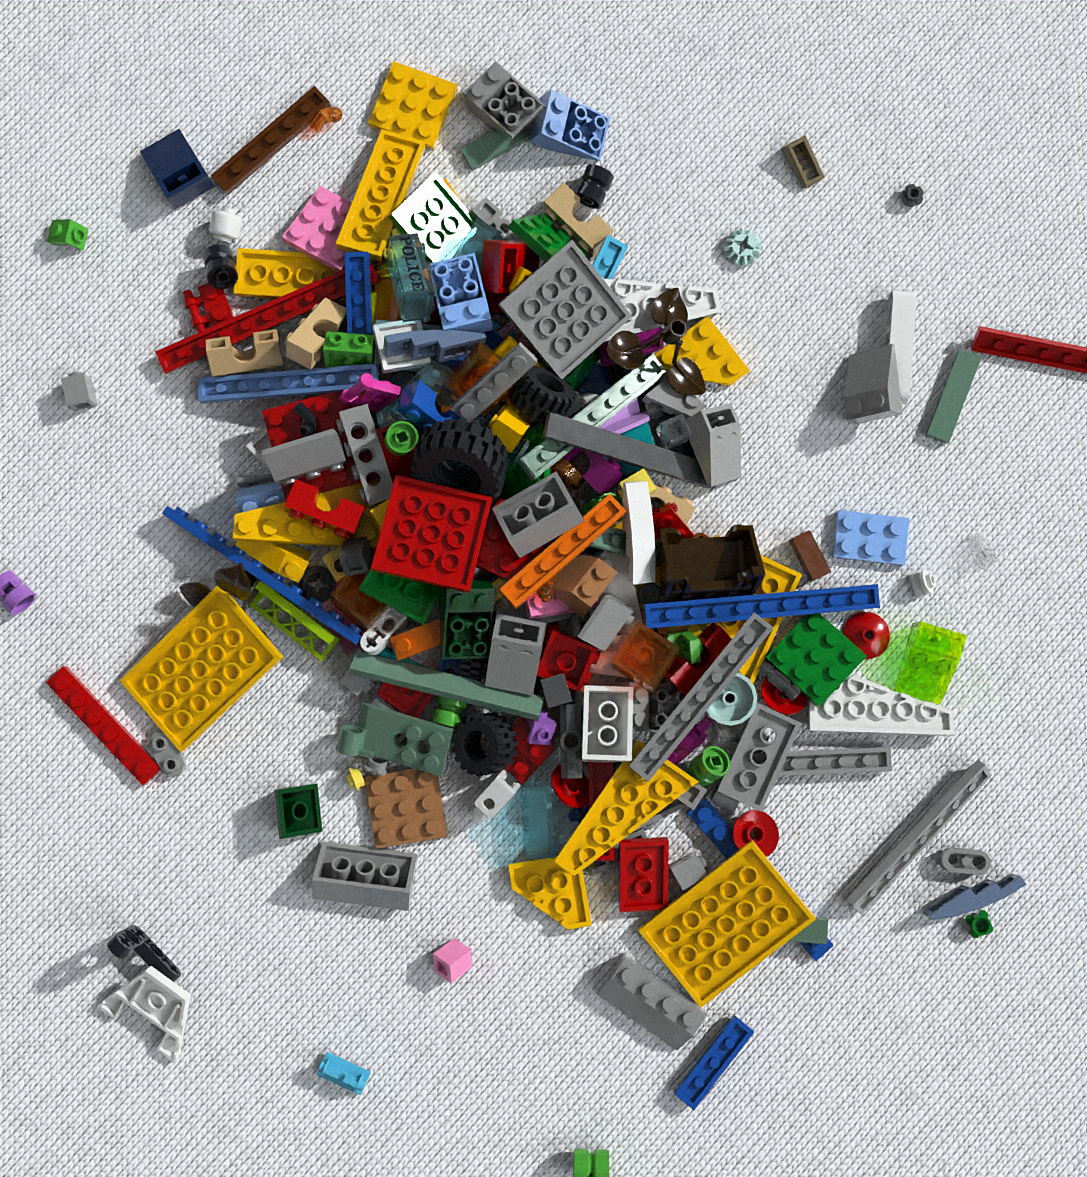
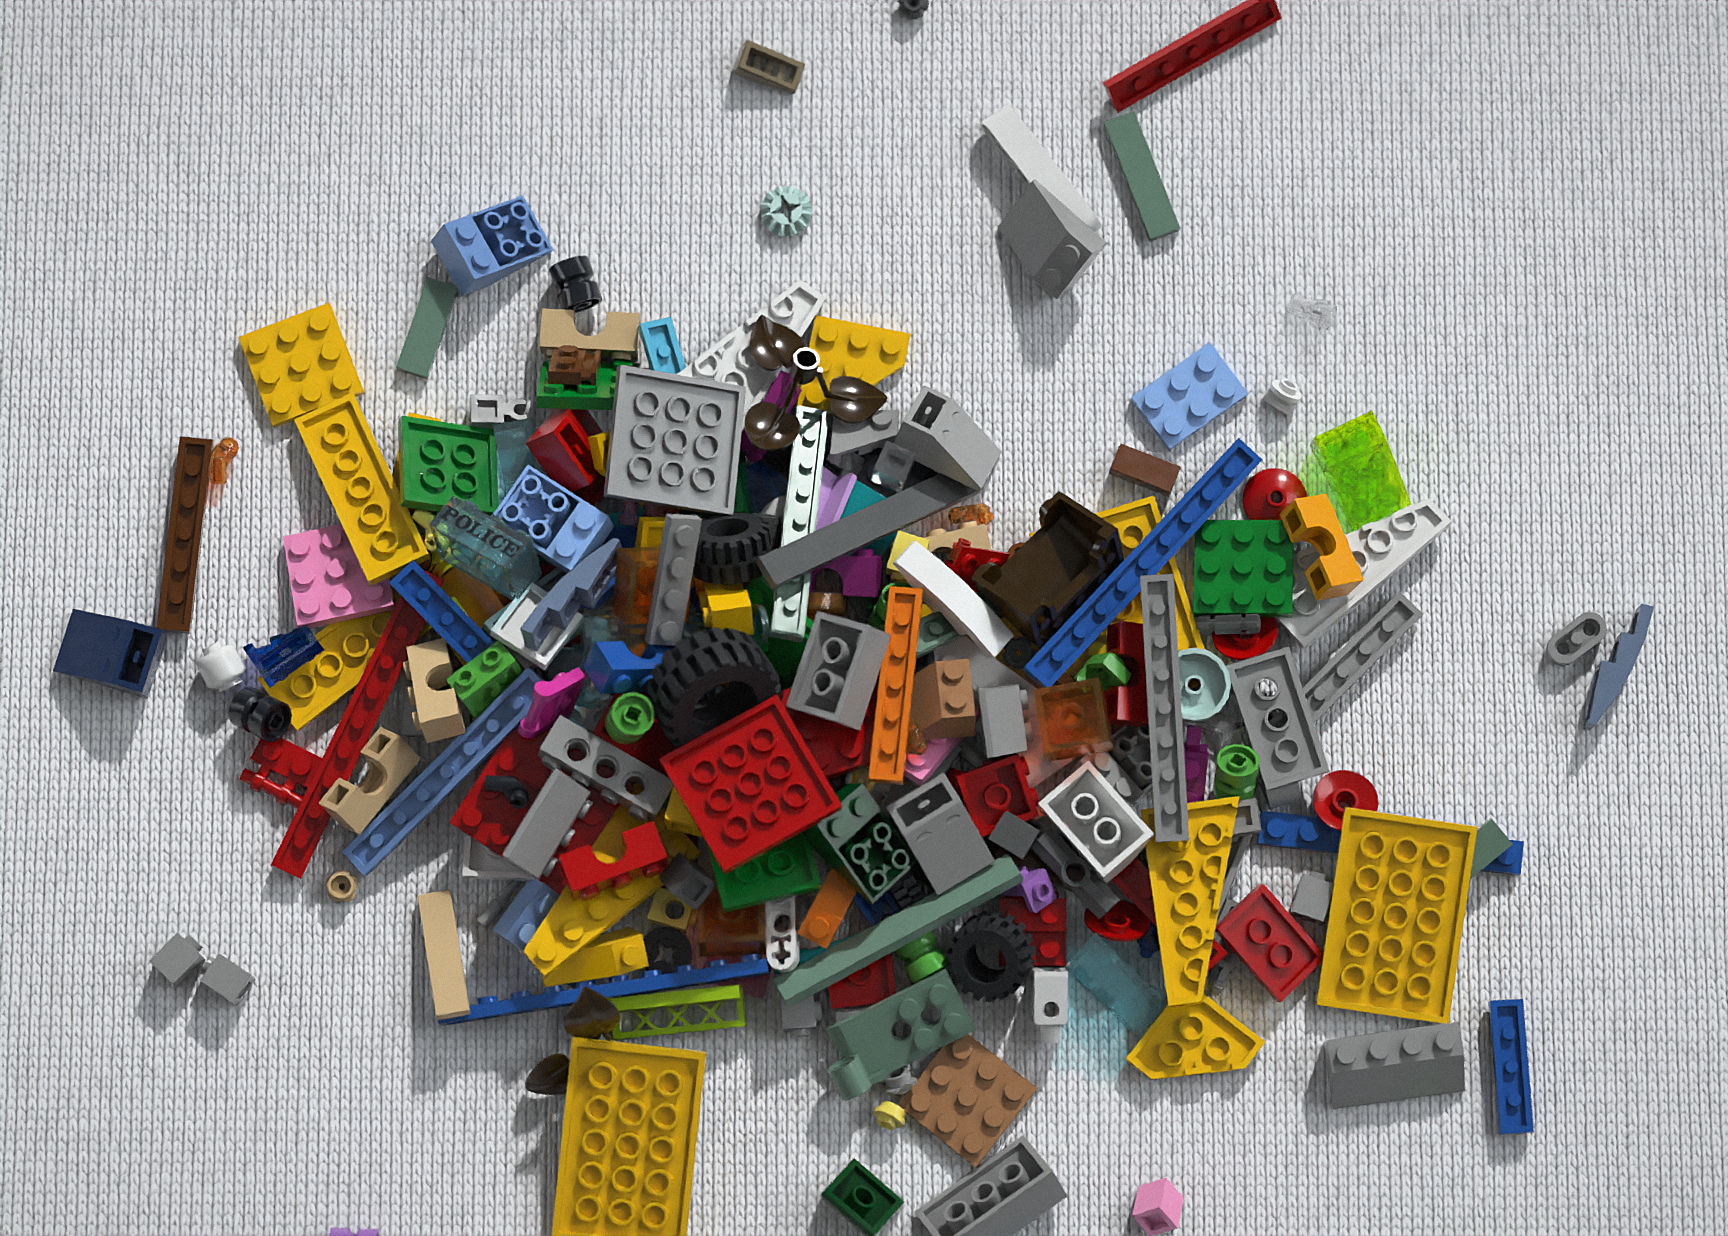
camera: 45 degrees left, 5 degrees down
(63, 358) = (178, 958): none -> light grey brick
(67, 233) = (56, 826): bright green bracket -> none
(177, 395) = (338, 878): none -> tan plate
(199, 480) = (443, 954): none -> tan tile
(261, 247) = (284, 654): none -> clear blue wing
(502, 101) = (400, 280): light grey slope -> none
(550, 223) = (573, 365): none -> reddish brown plate
(693, 494) = (966, 513): none -> clear orange arm
(878, 668) = (1315, 522): none -> light orange arch
(919, 837) = (1510, 656): light grey plate -> none
(985, 928) = (1645, 680): green plate -> none

